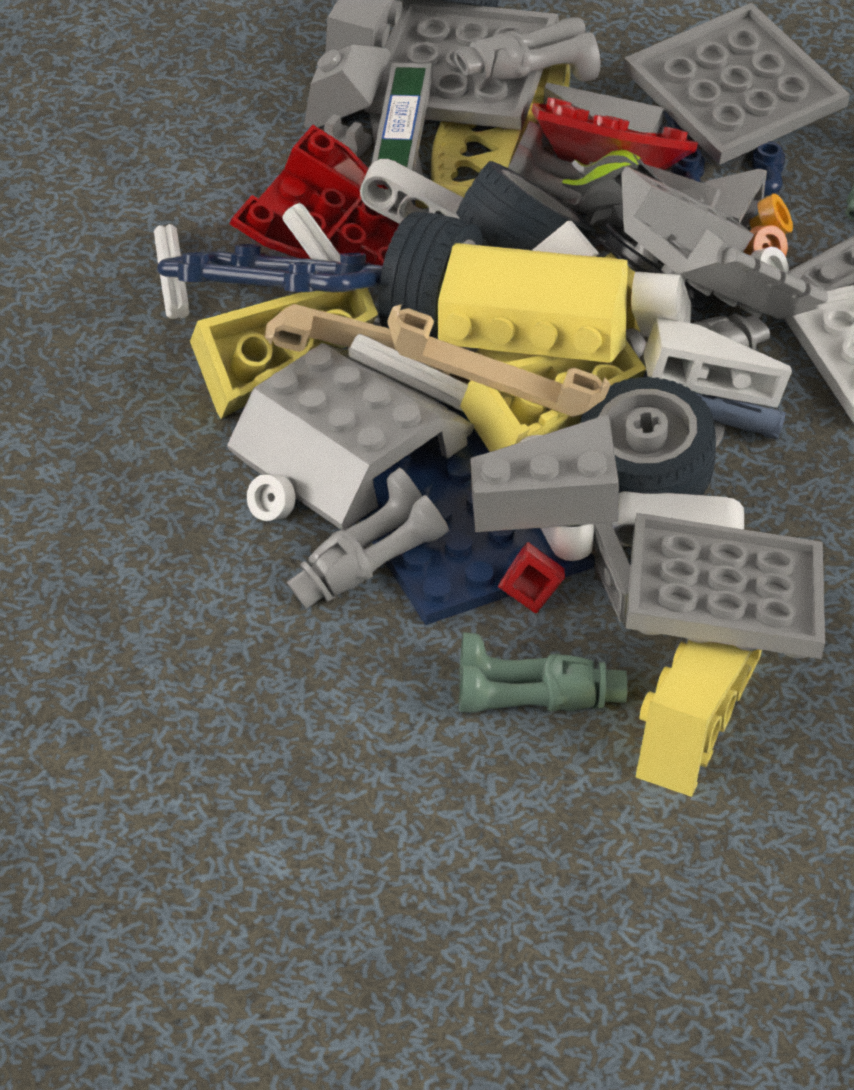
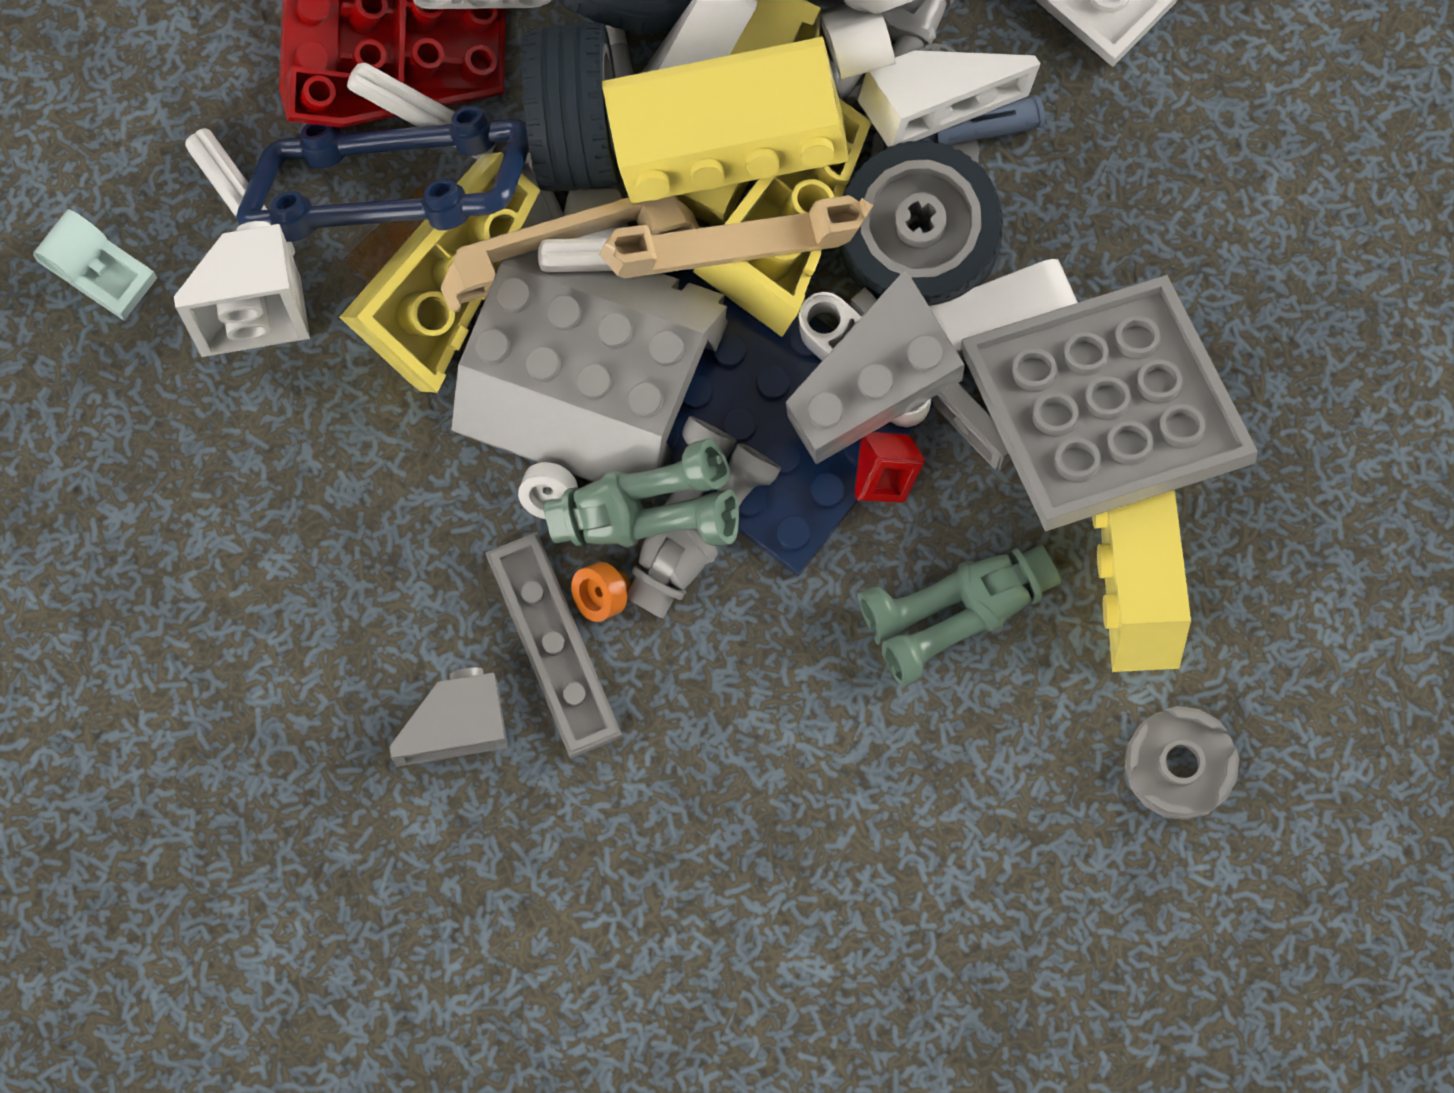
camera: 25 degrees left, 30 degrees up
(42, 262) = (94, 265): none -> light aqua plate
(104, 597) = (453, 720): none -> light grey slope
(130, 292) = (244, 293): none -> white slope
(212, 591) = (553, 645): none -> light grey tile
(269, 566) = (600, 591): none -> orange tile
(310, 508) = (613, 511): none -> sand green piece
(651, 876) = (1173, 795): none -> light grey tile

